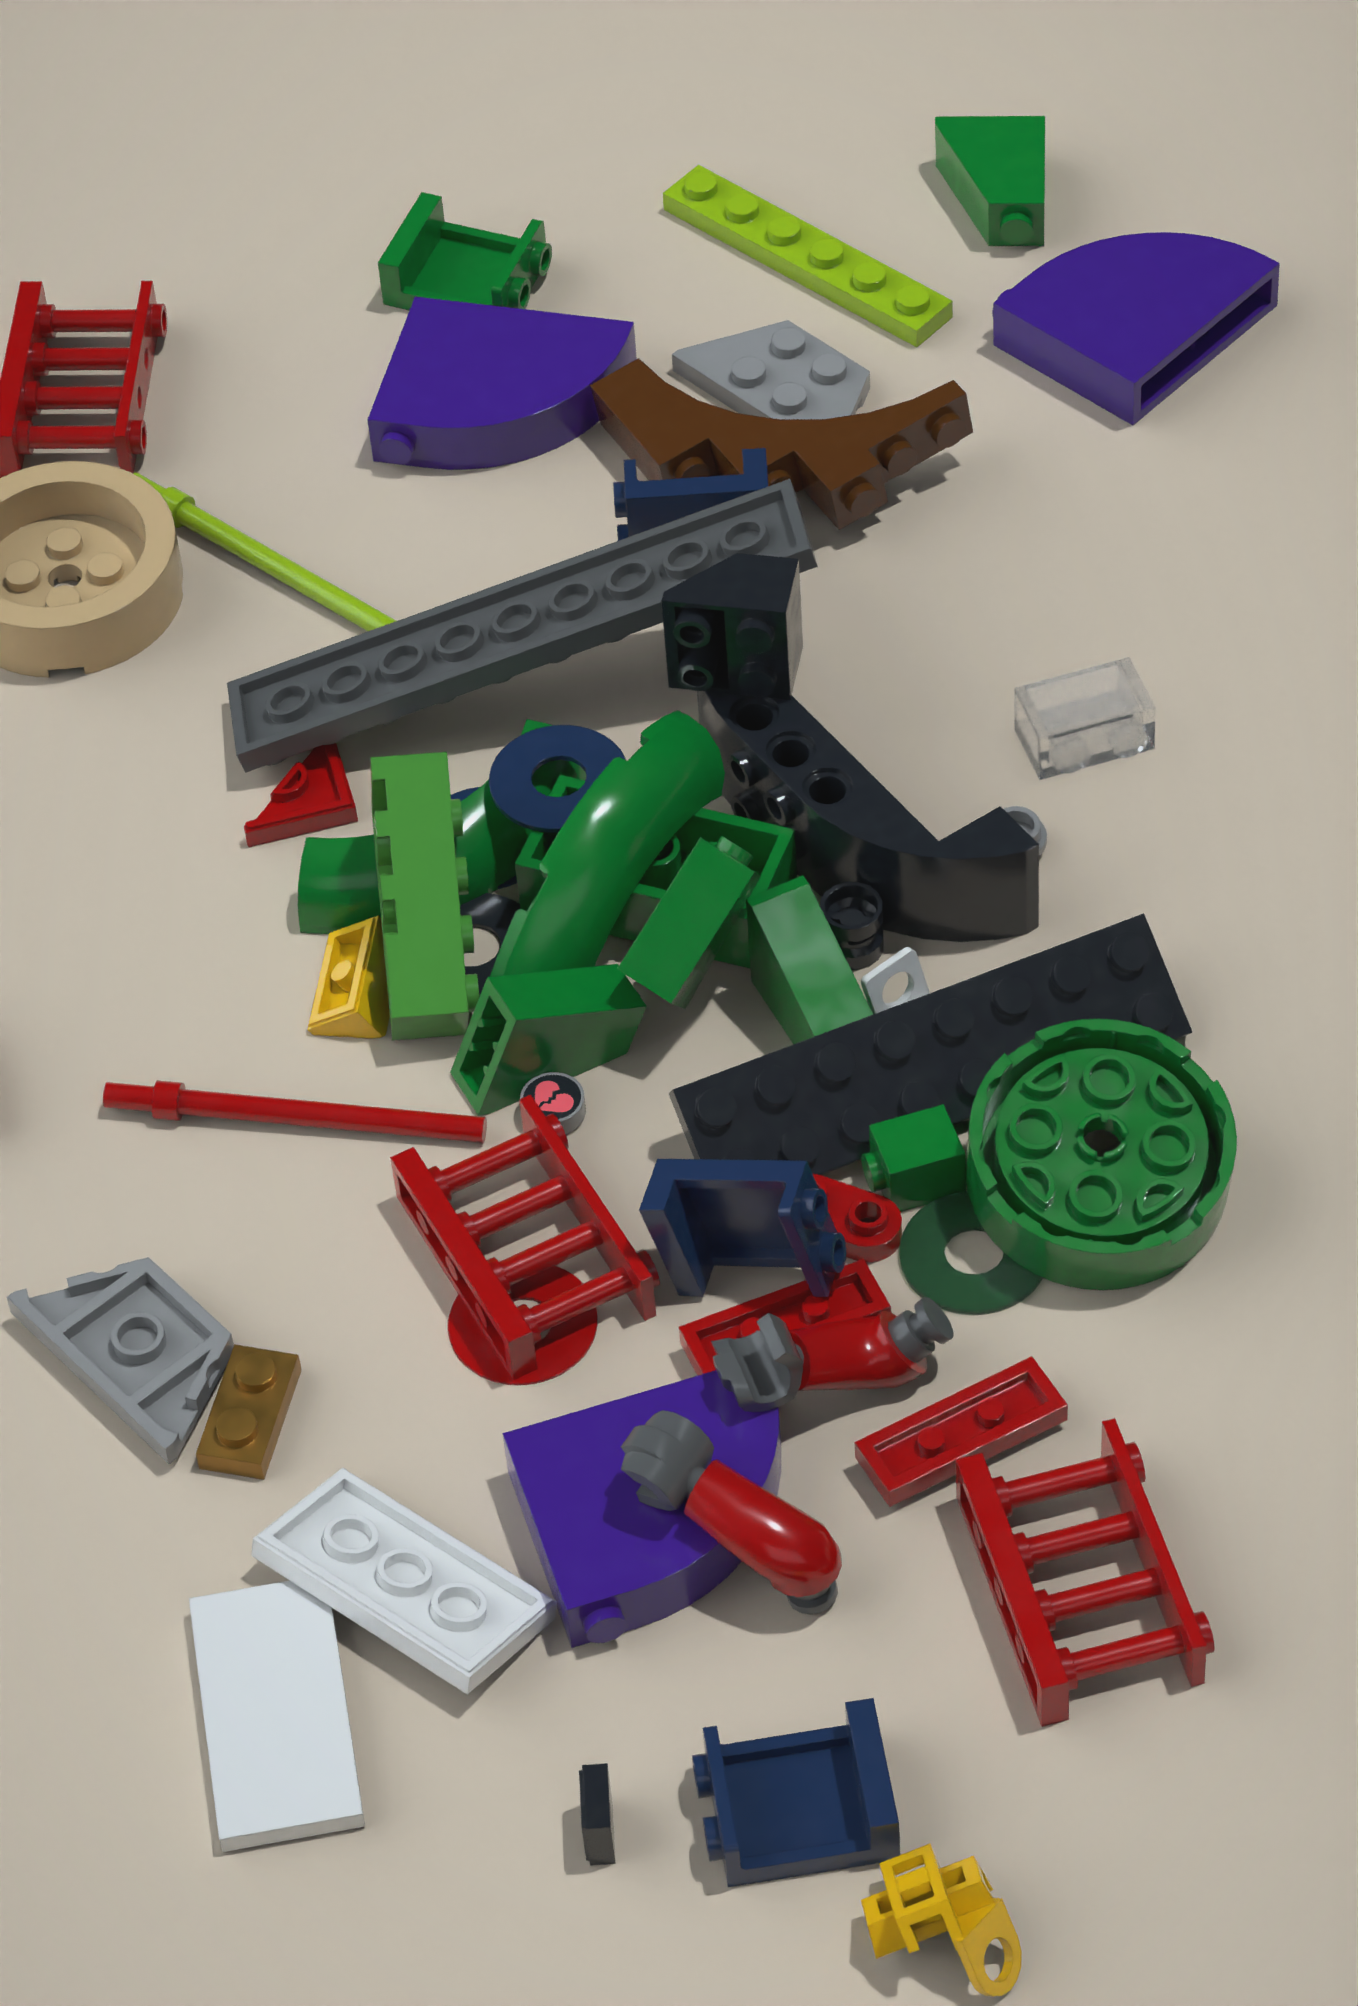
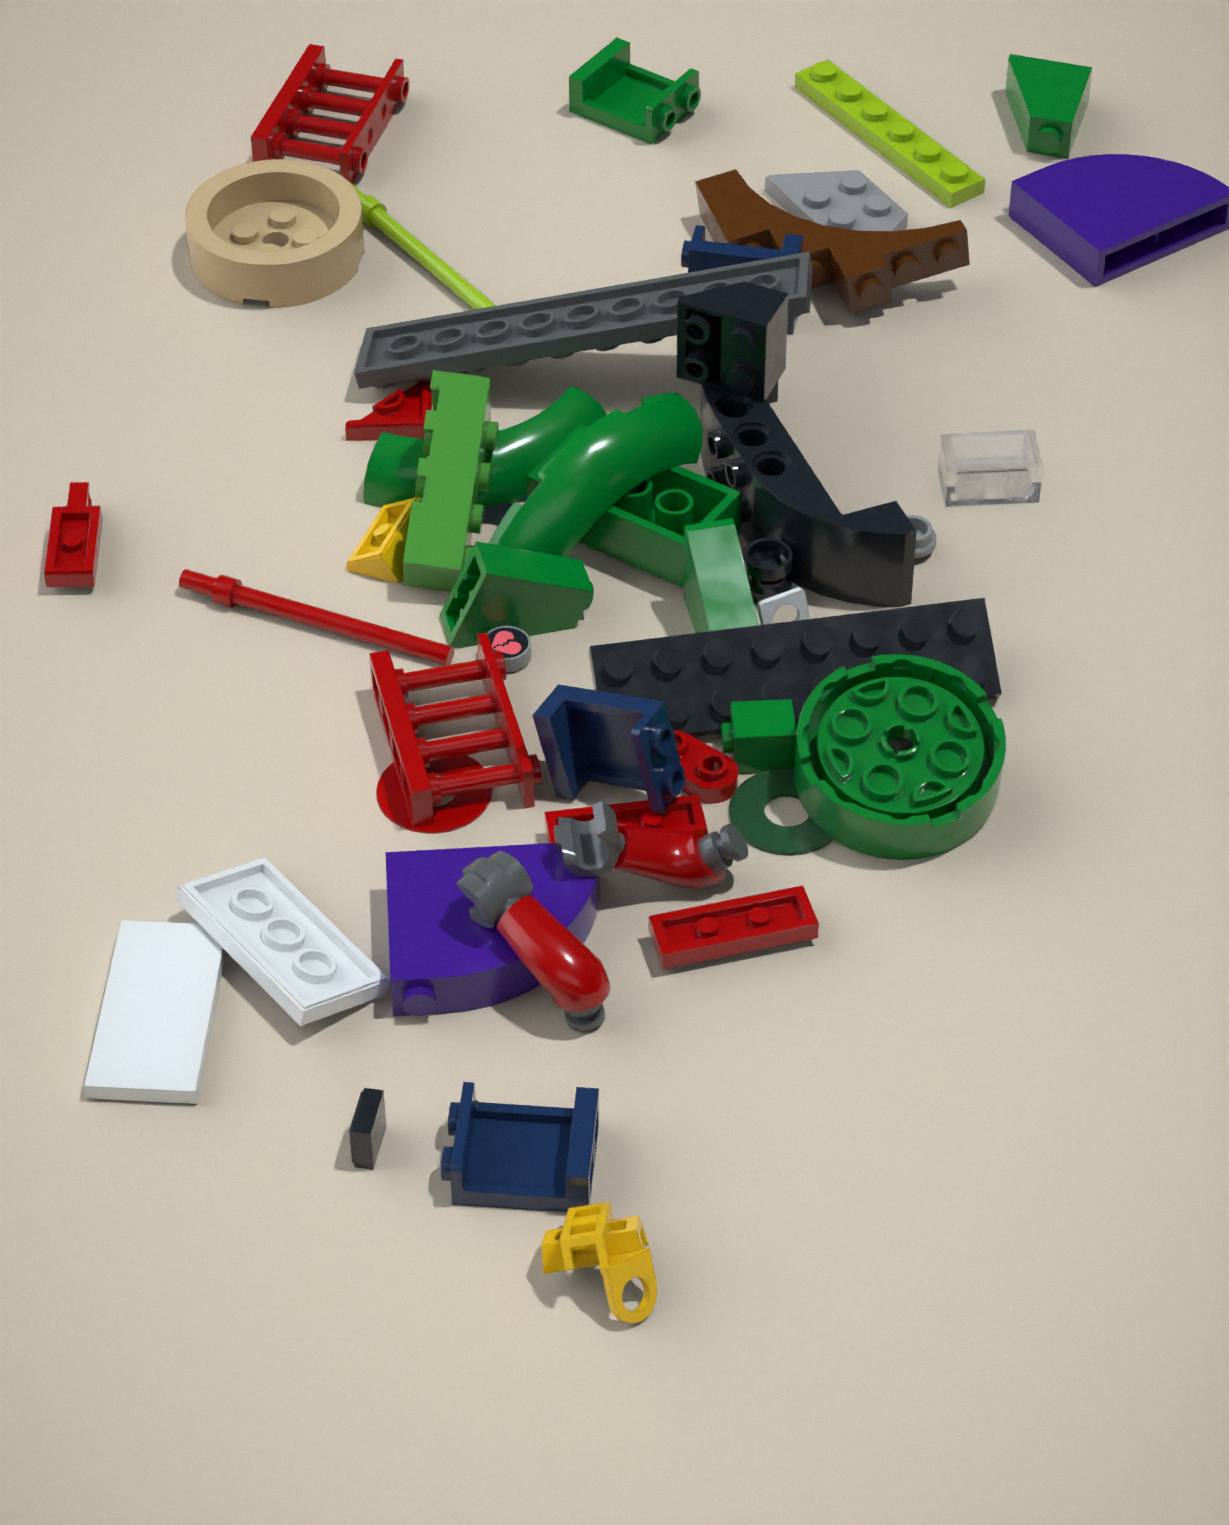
camera: 10 degrees right, 5 degrees down
(135, 1346) = (143, 746): light grey wing -> none
(248, 1412) = (211, 807): pearl gold plate -> none
(491, 383) = (624, 171): dark purple brick -> none
(515, 764) = (544, 417): dark blue gear -> none
(691, 921) = (639, 535): green slope -> none
(1033, 1614) = (746, 1061): red fence -> none

